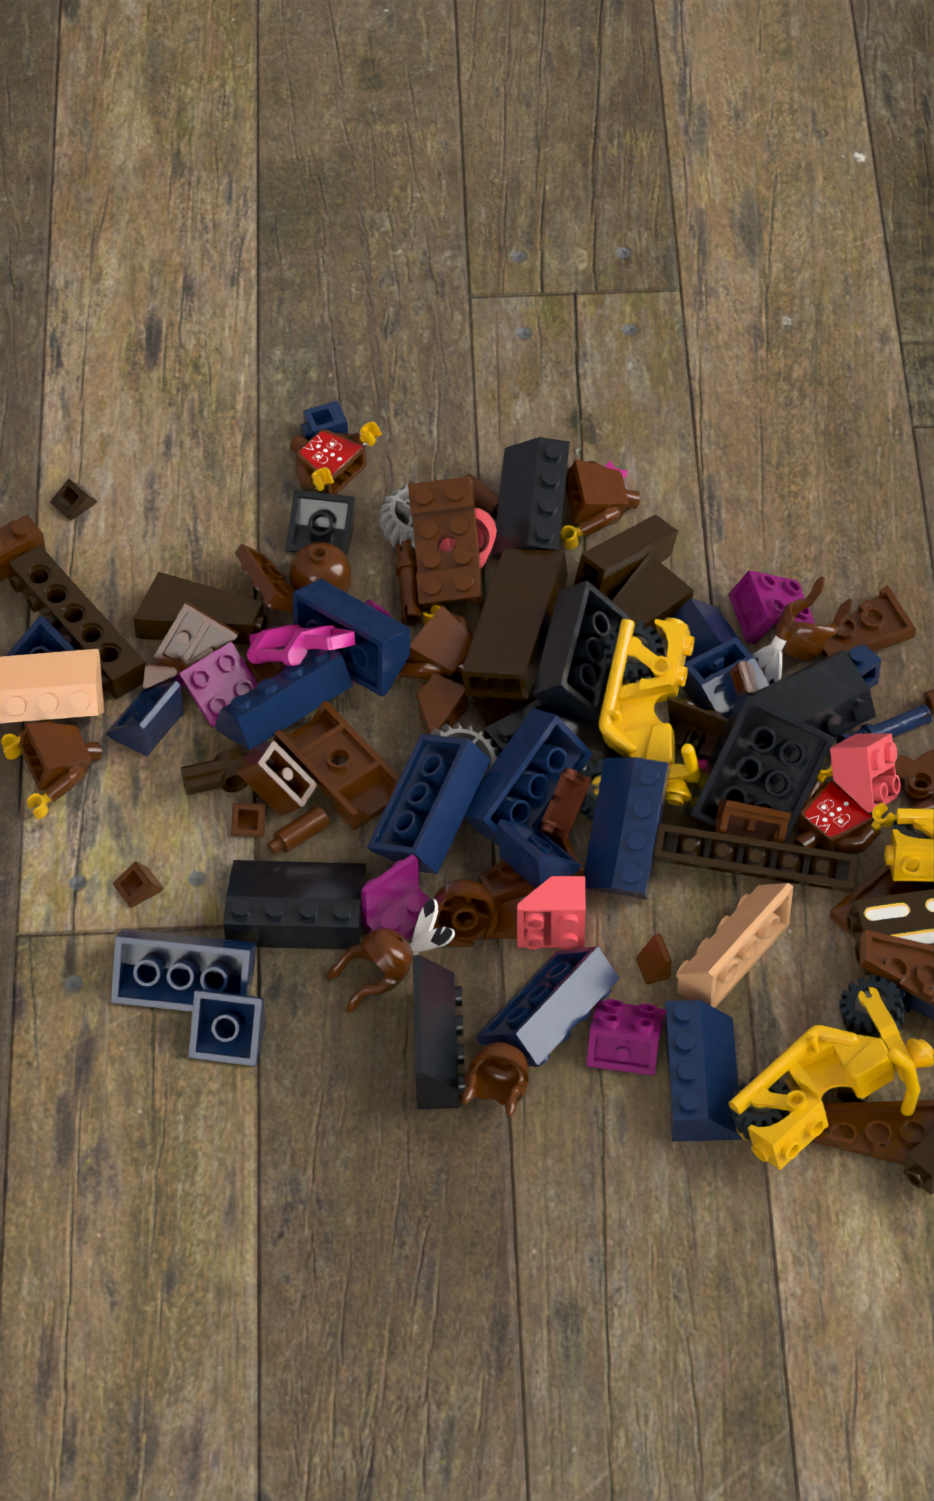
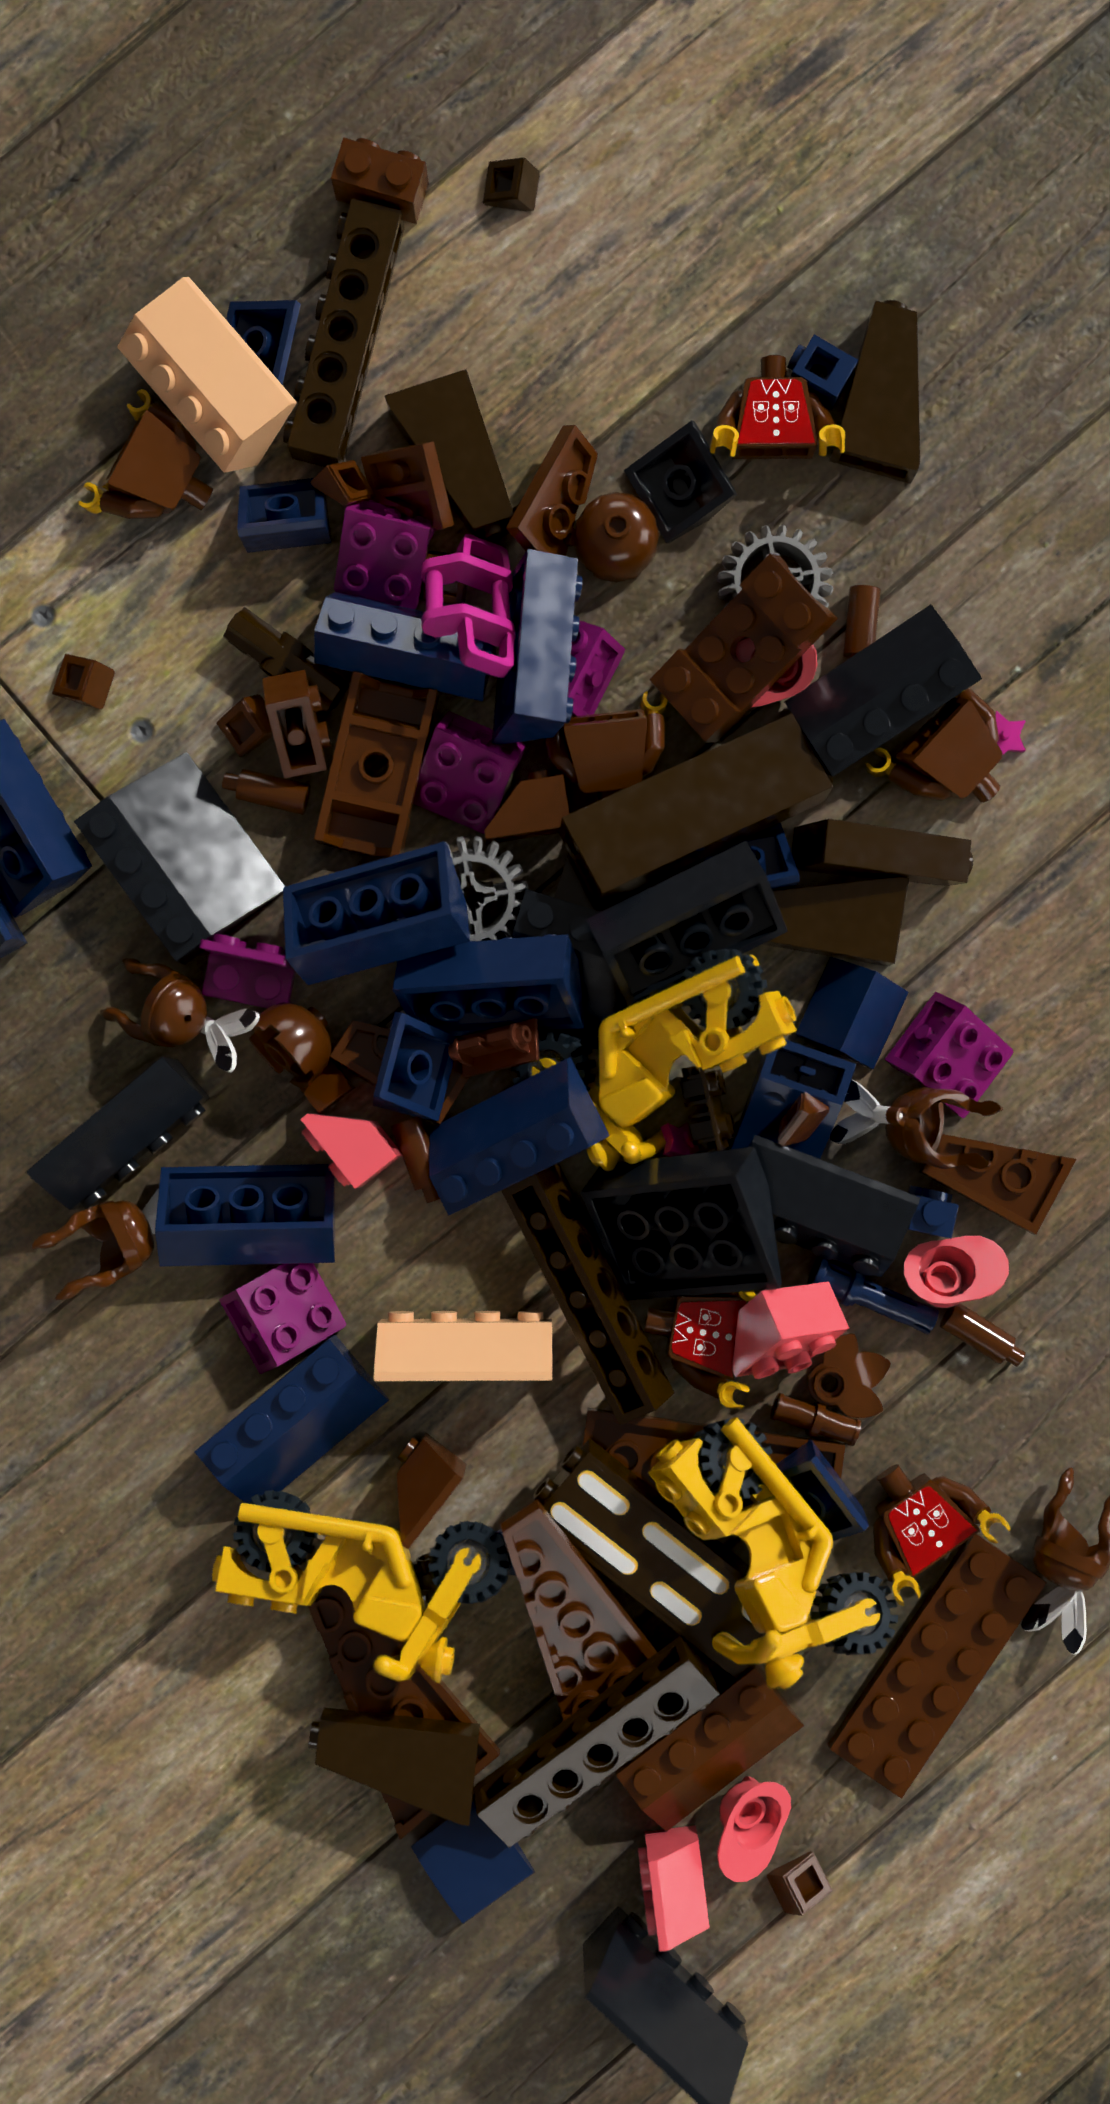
camera: 50 degrees right, 35 degrees up
(369, 402) = (884, 397): none -> dark brown slope
(388, 724) = (465, 772): none -> magenta bracket
(407, 571) = (683, 633): reddish brown pin -> none
(605, 902) = (414, 1147): none -> reddish brown cylinder
(655, 961) = (390, 1274): reddish brown slope -> none
(751, 821) = (625, 1258): reddish brown hinge -> none
(798, 1009) = (424, 1484): none -> reddish brown slope
(903, 677) = (956, 1270): none -> coral piece

